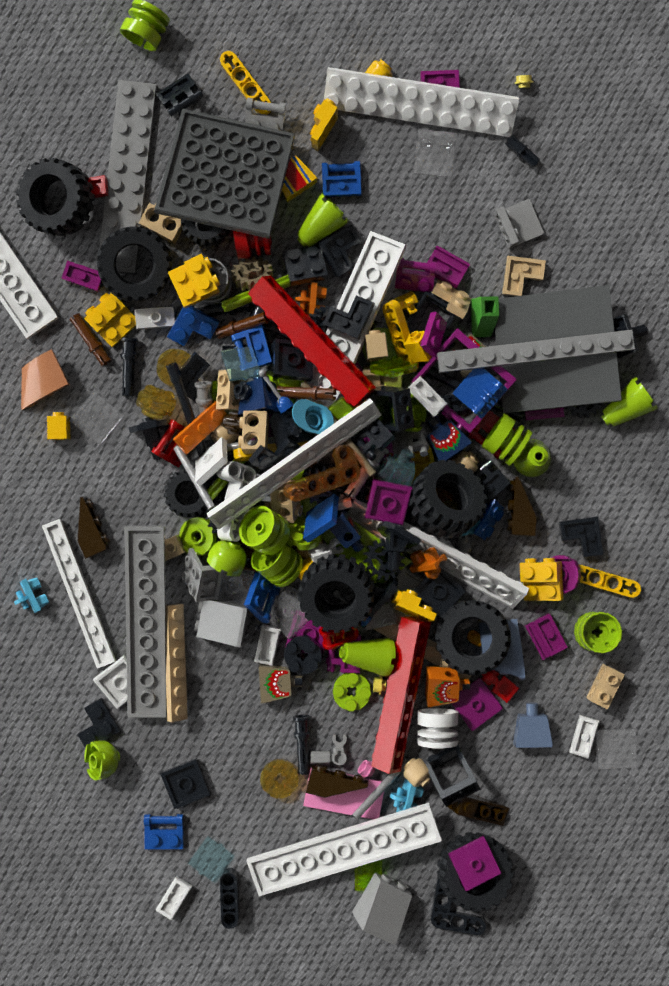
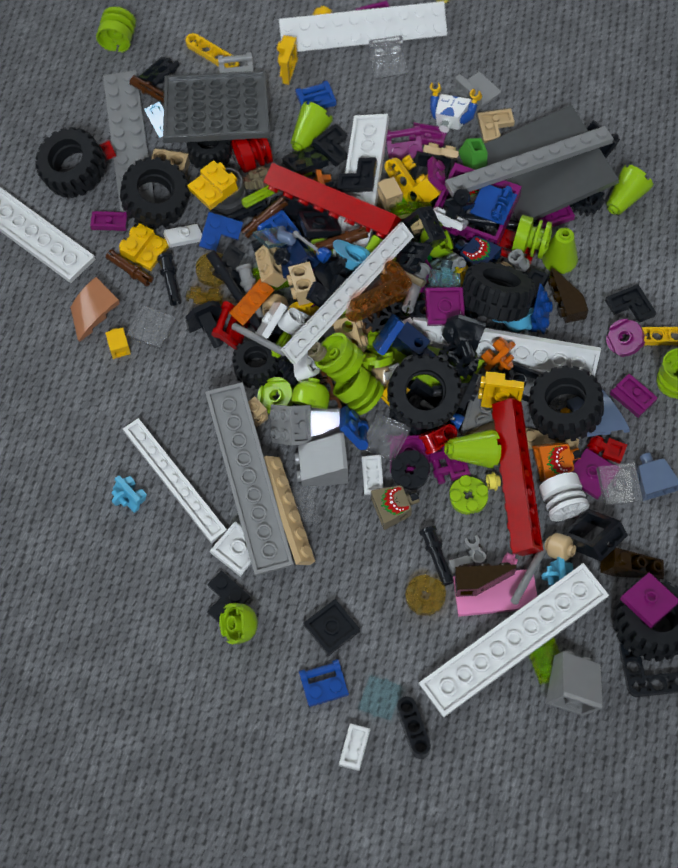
camera: 15 degrees left, 25 degrees down
(90, 535) = (173, 426): dark brown slope -> none
(160, 115) = (137, 82): none -> reddish brown pin
(160, 158) = (155, 115): none -> hips
(231, 423) = (281, 289): dark brown gear -> none
(244, 524) = (317, 352): none -> dark tan bush
(250, 372) = (284, 236): none -> sand blue arm
(297, 179) = (279, 104): torso -> none
(440, 388) = (458, 204): none -> black hips
(481, 246) = (452, 111): none -> torso
(486, 465) = (516, 260): none -> light grey bush
(496, 725) = (619, 484): none -> clear plate
(522, 151) = (460, 41): black axle -> none
(542, 579) = (613, 344): yellow plate -> none

